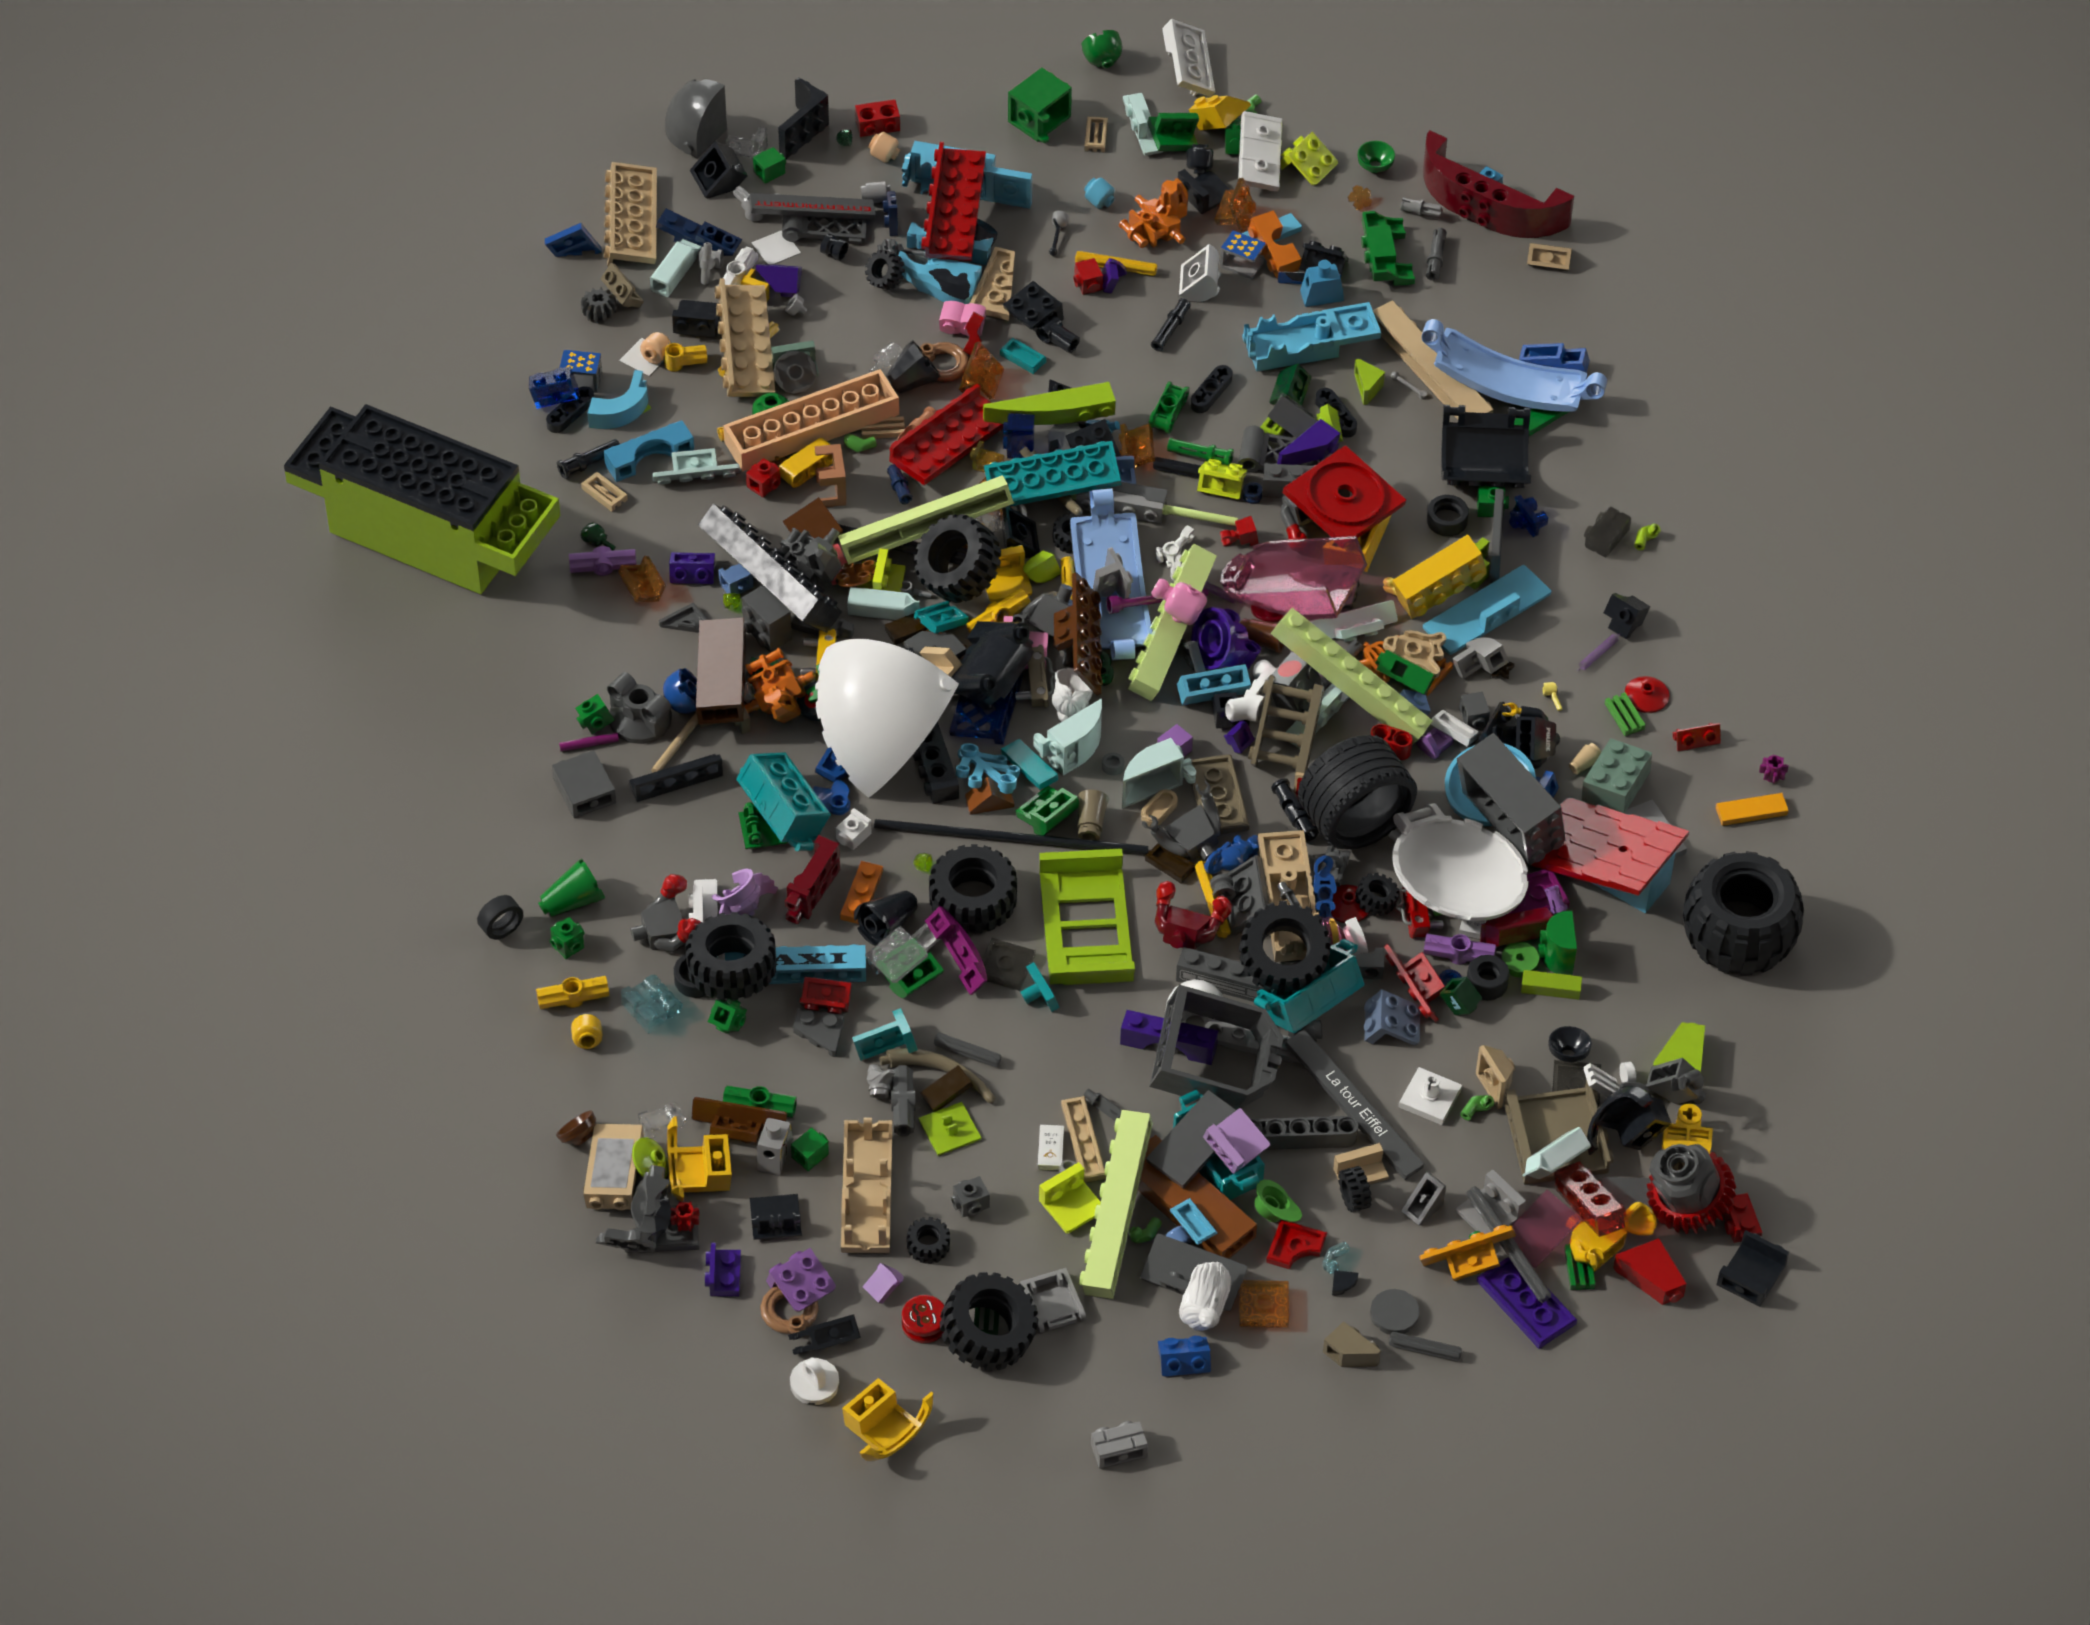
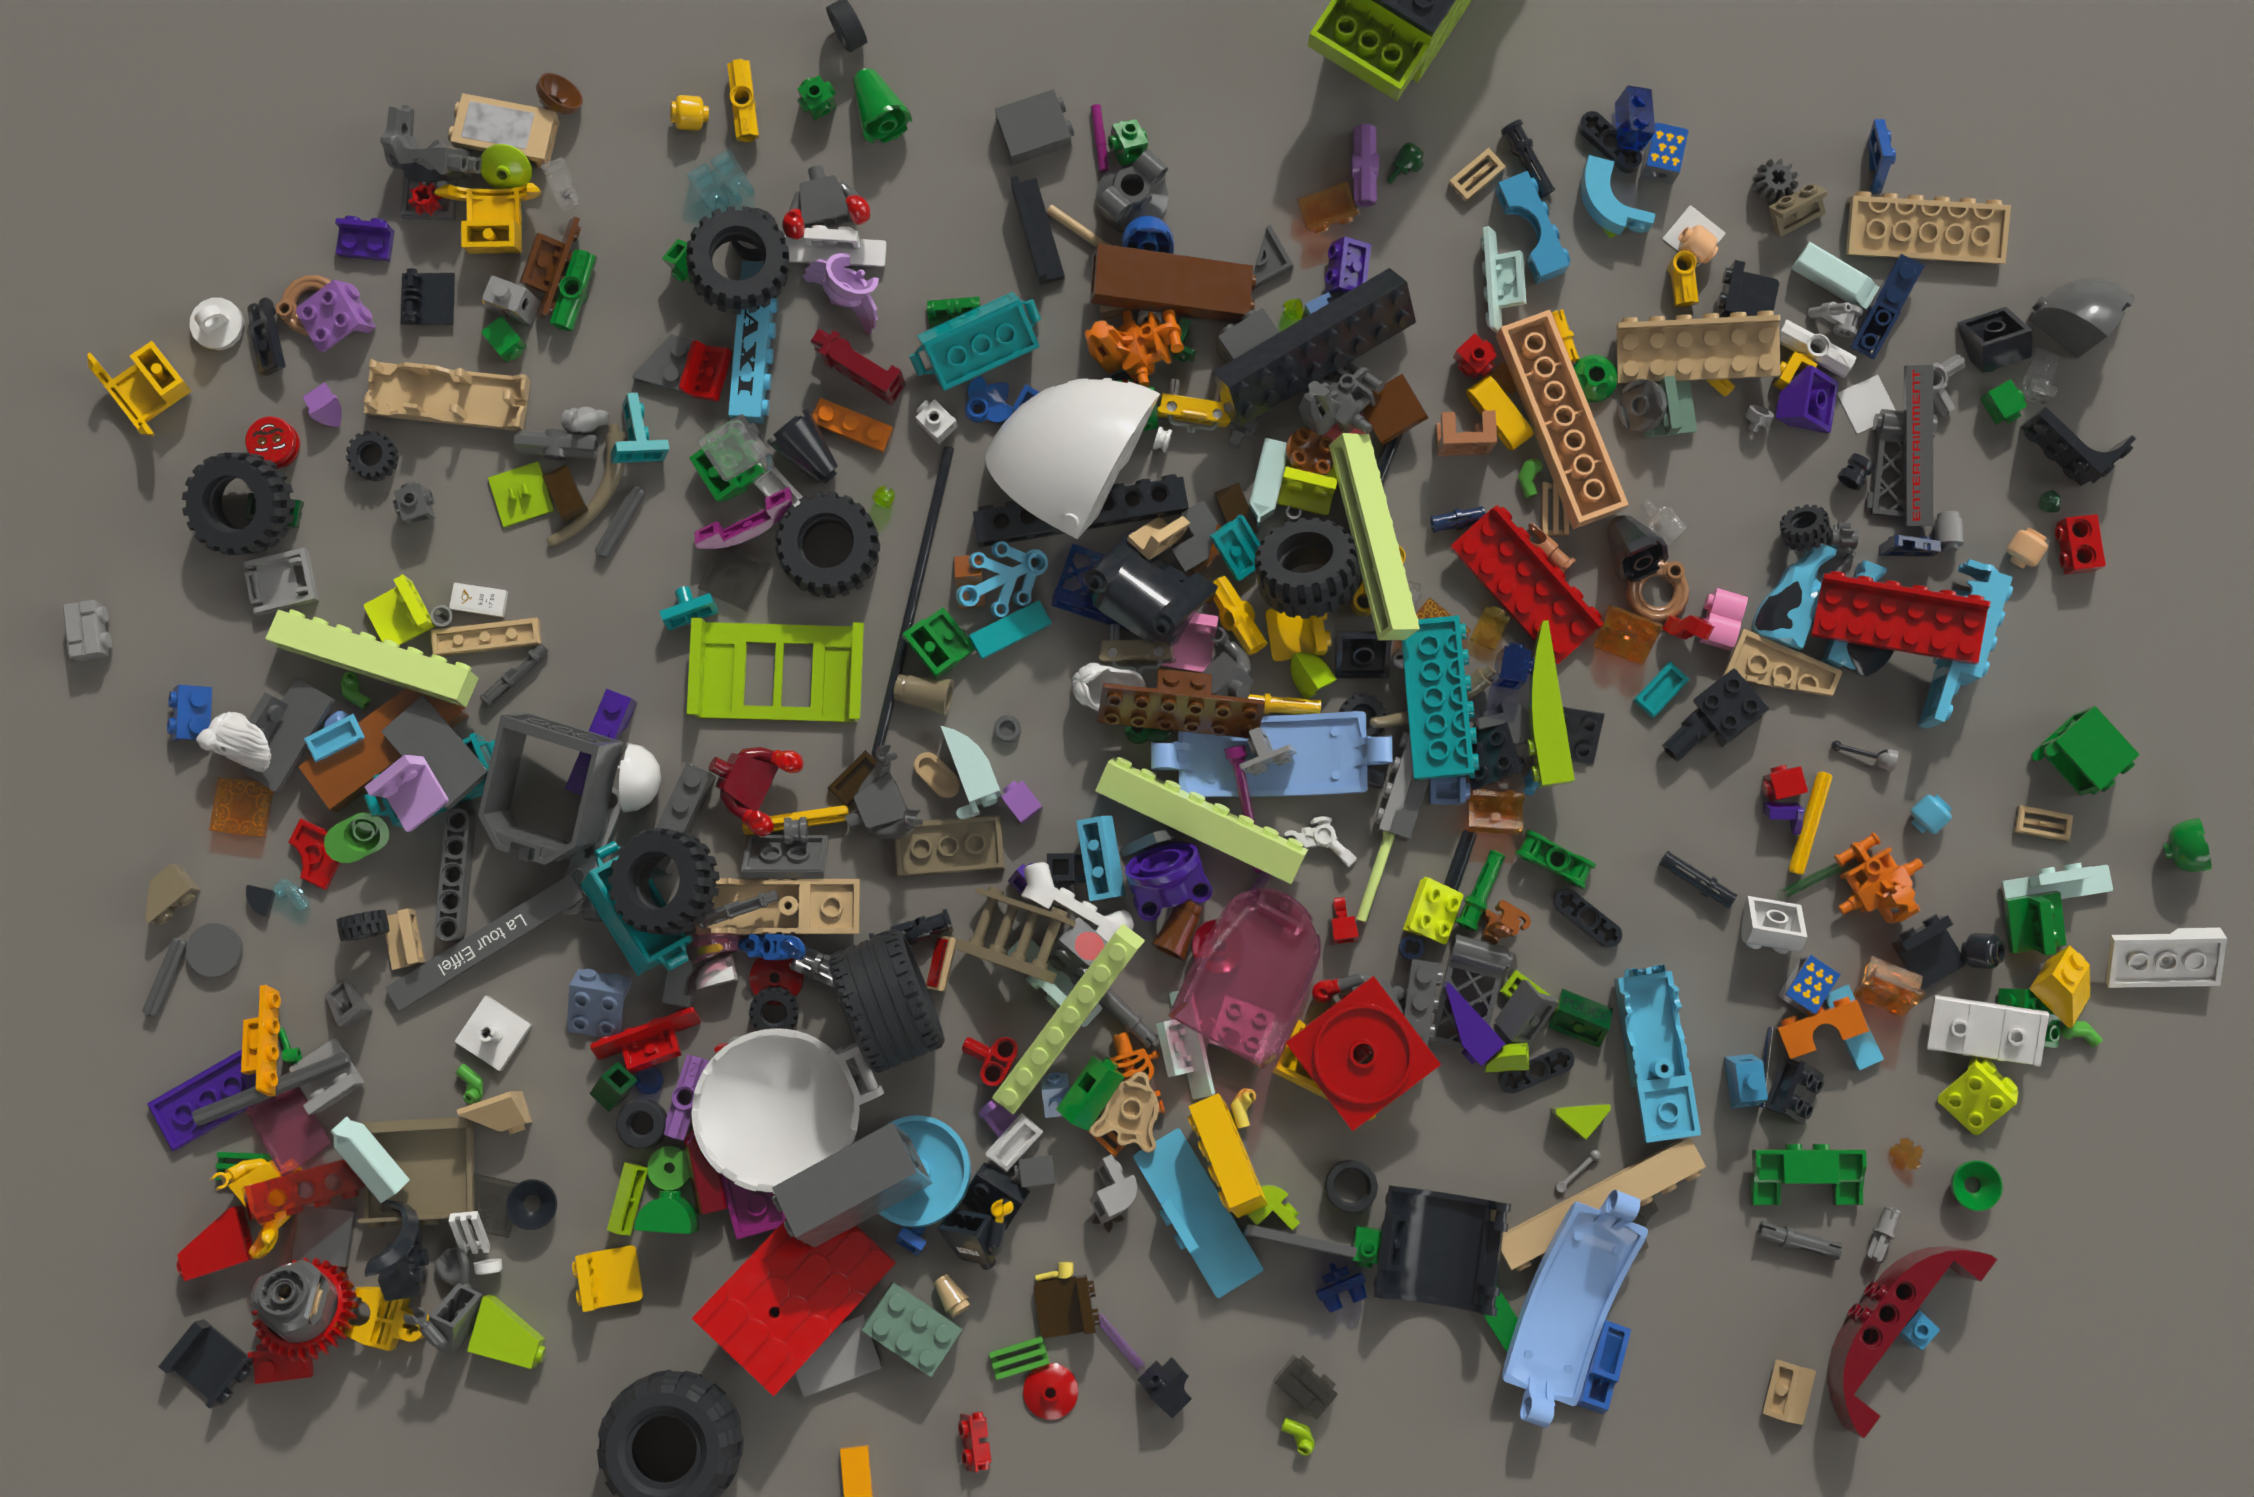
camera: 95 degrees right, 30 degrees up
(1072, 740) = (1029, 682): light aqua piece -> none
(1161, 262) = (1812, 877): none -> green piece
(1182, 601) = (1207, 827): bright pink piece -> none
(1226, 428) = (1505, 923): none -> dark orange piece
(1232, 855) = (845, 851): blue animal -> none
(1555, 899) = (721, 1222): medium lavender pin -> none
(1577, 680) = (1066, 1306): none -> dark brown bracket
(1619, 989) = (607, 1277): none -> yellow bracket

